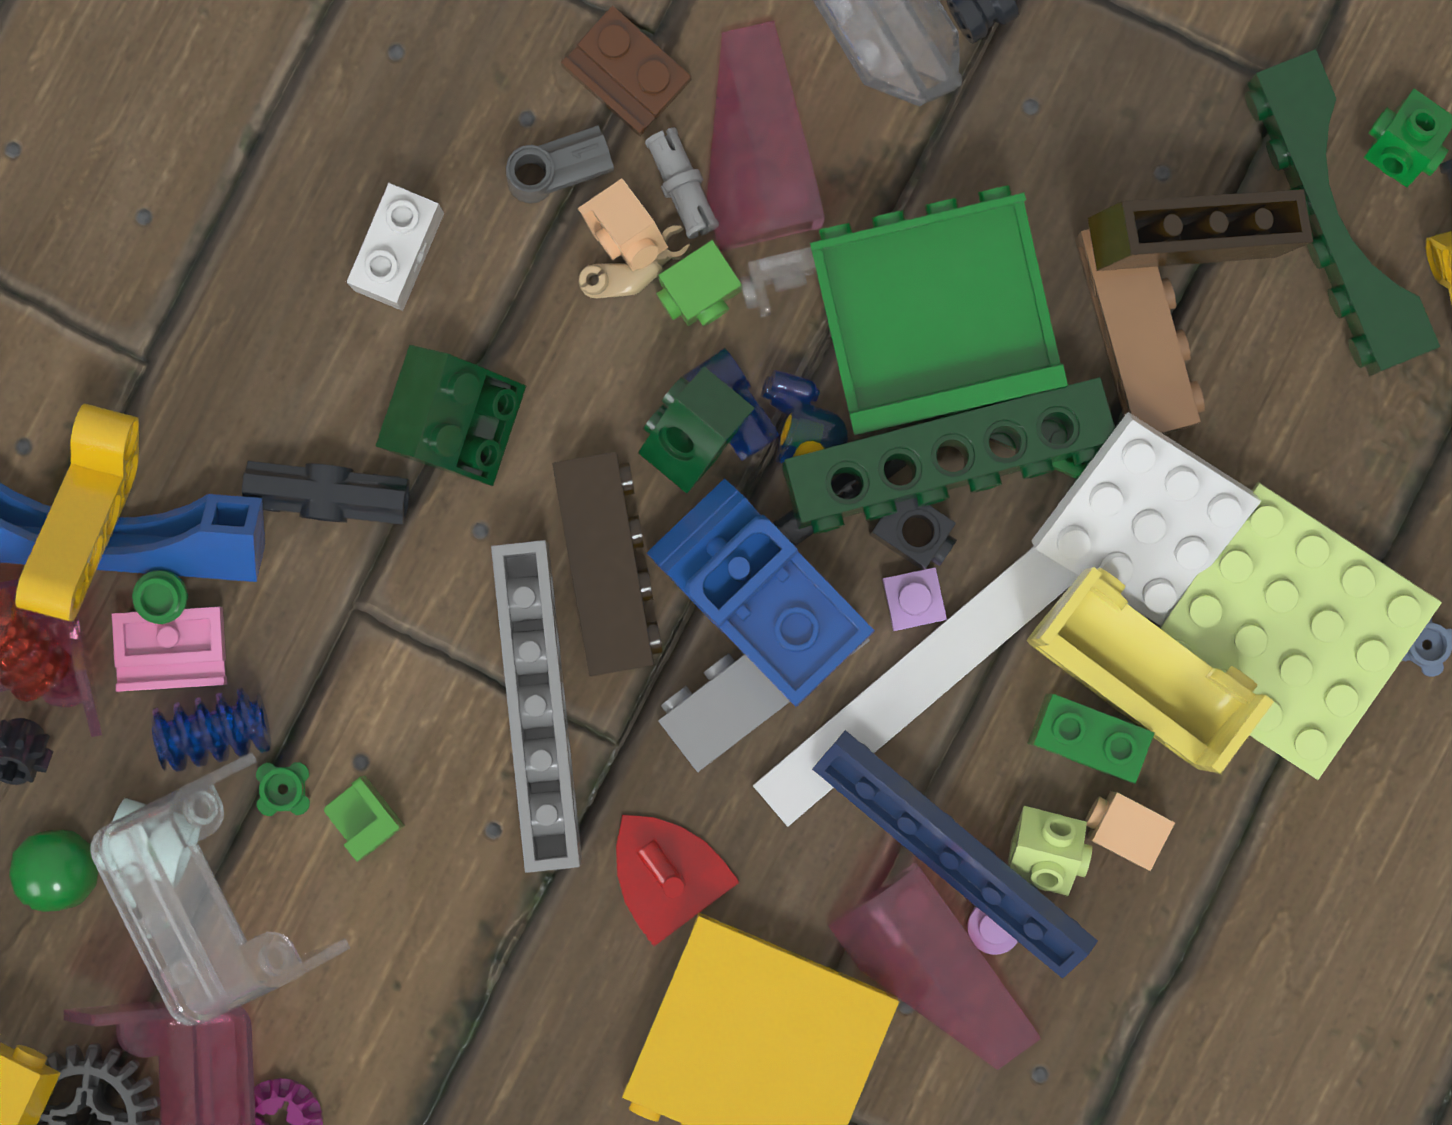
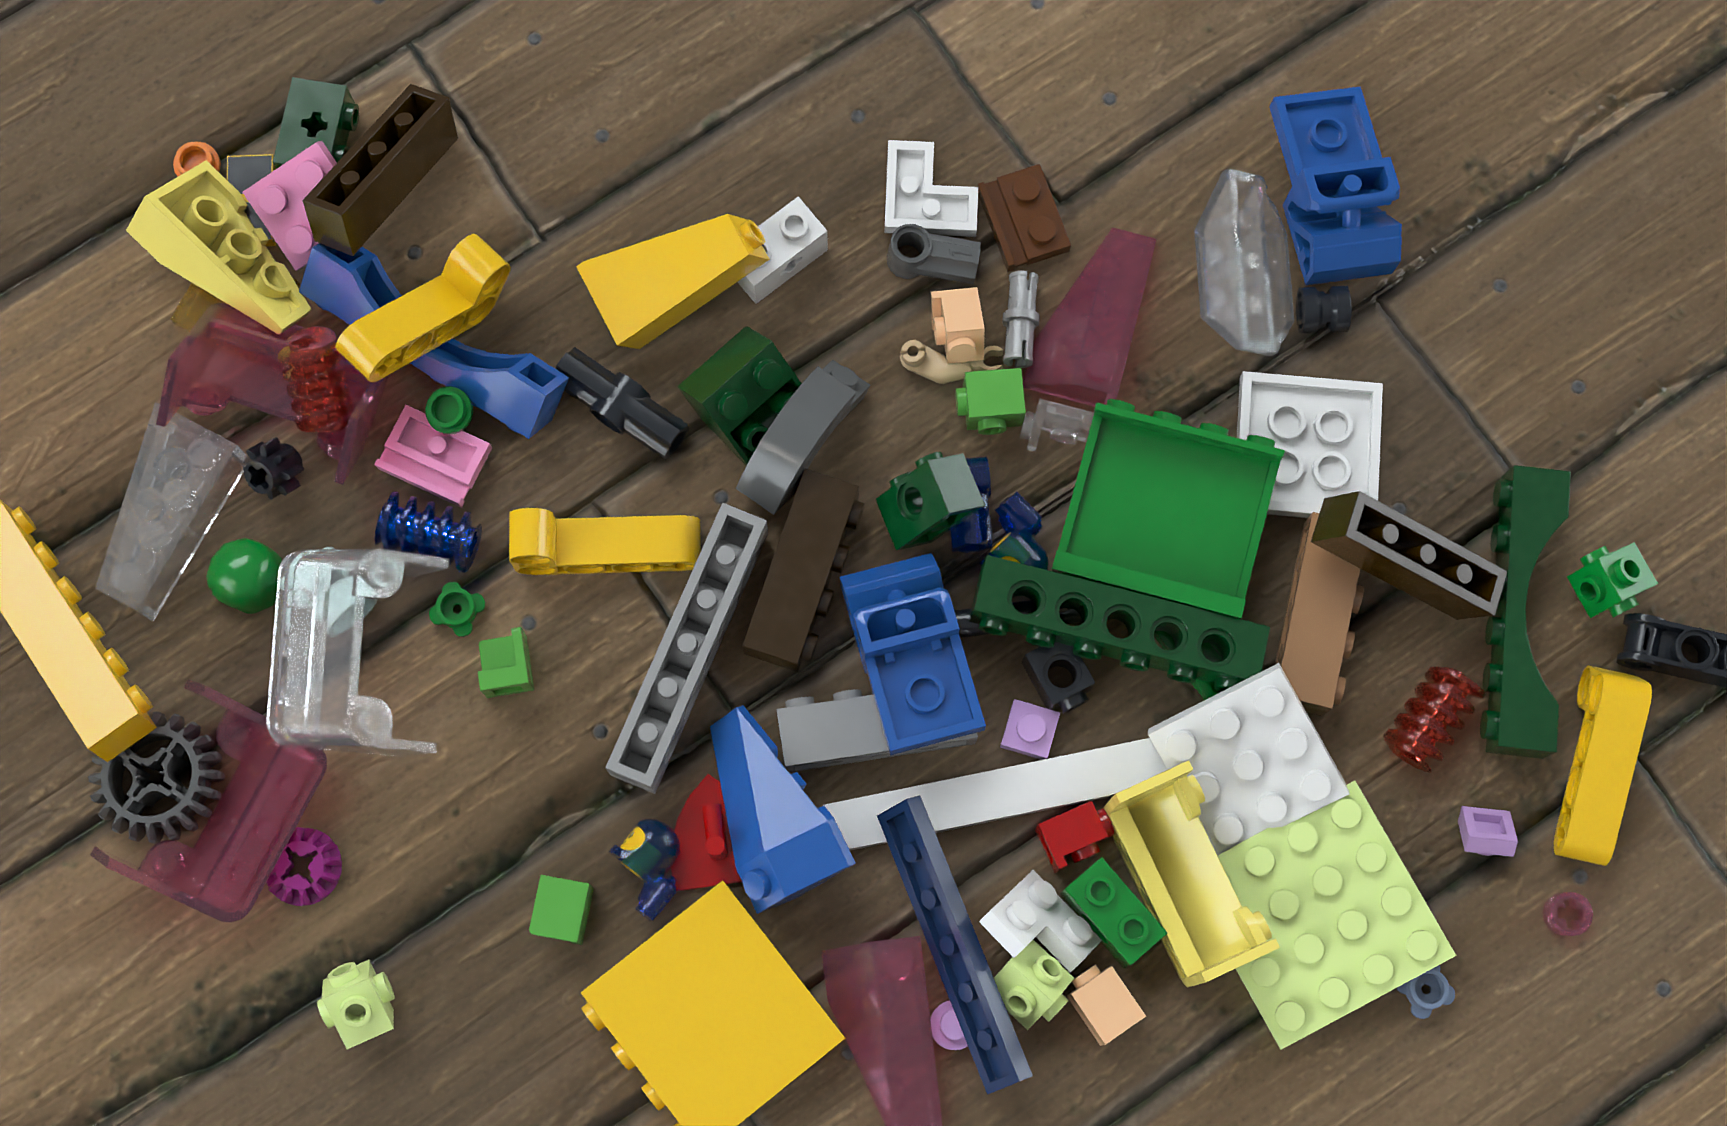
camera: 30 degrees right, 10 degrees down
(302, 344) = (670, 276): none -> yellow slope
(392, 645) = (602, 544): none -> yellow beam
(510, 116) = (916, 201): none -> white plate
(528, 426) = (799, 434): none -> dark grey arch
(556, 1027) = (561, 909): none -> bright green panel
(612, 927) = (649, 856): none -> clear blue piece
(722, 840) = (775, 830): none -> blue wedge
(1013, 681) = (1074, 834): none -> red brick
(1020, 776) = (1037, 911): none -> white plate
(1045, 141) = (1326, 434): none -> white plate
(1301, 372) = (1430, 715): none -> clear red piece
(1410, 458) = (1487, 831): none -> lavender plate

